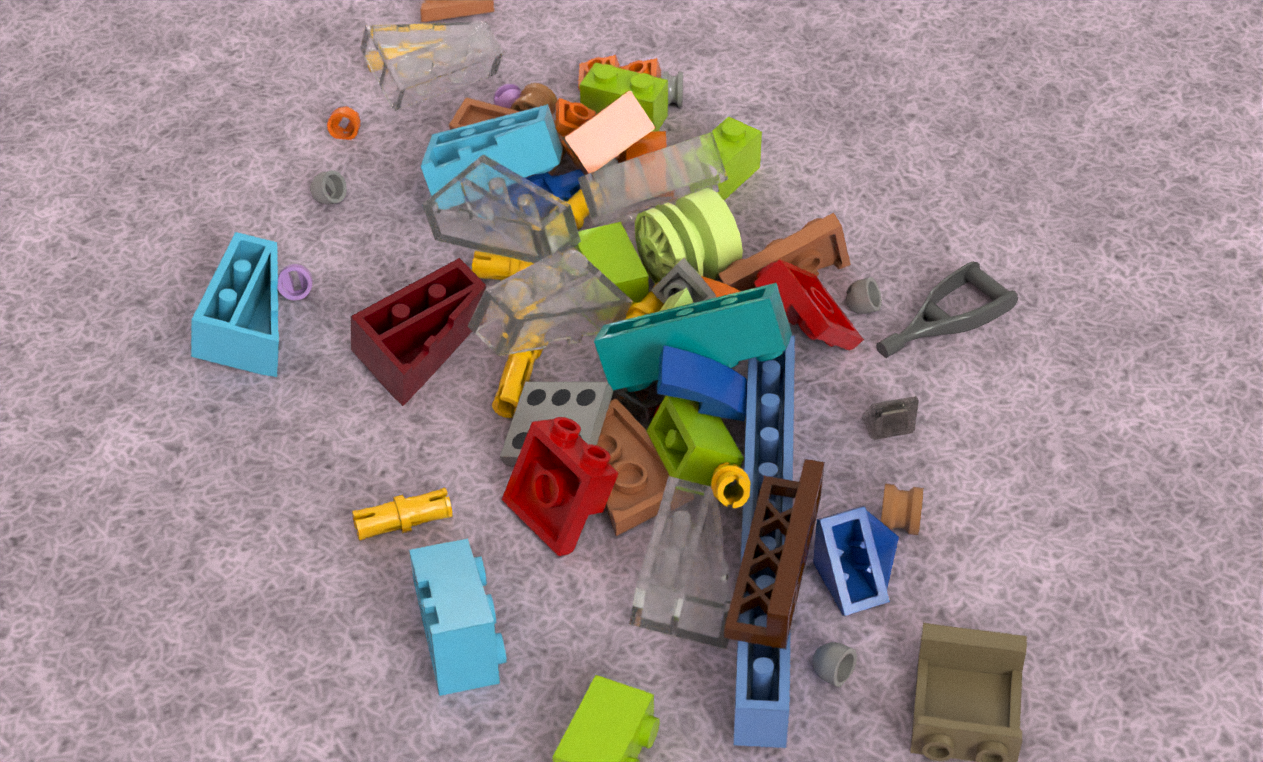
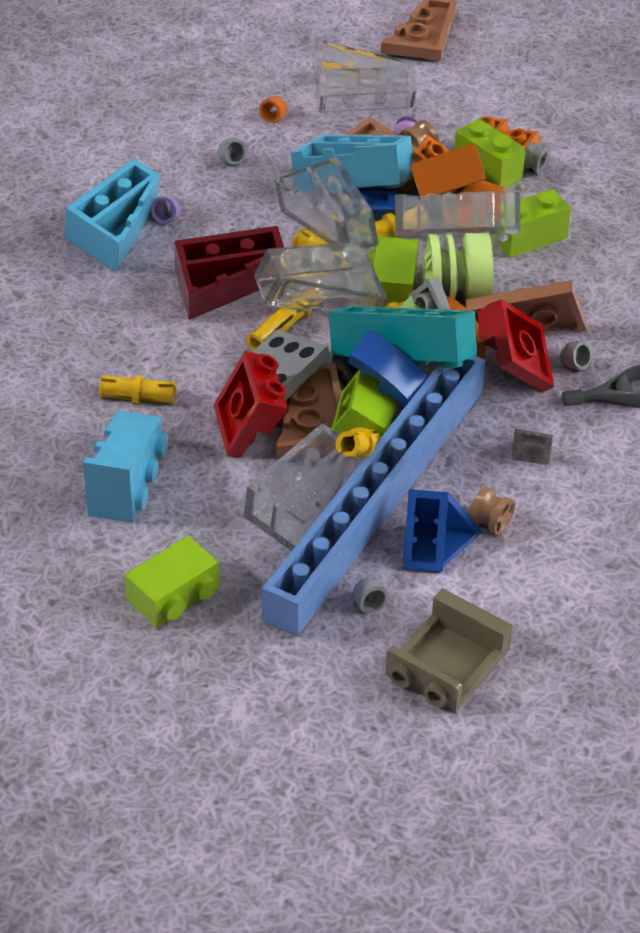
camera: 25 degrees right, 0 degrees up
(785, 561) = (353, 513): reddish brown fence -> none

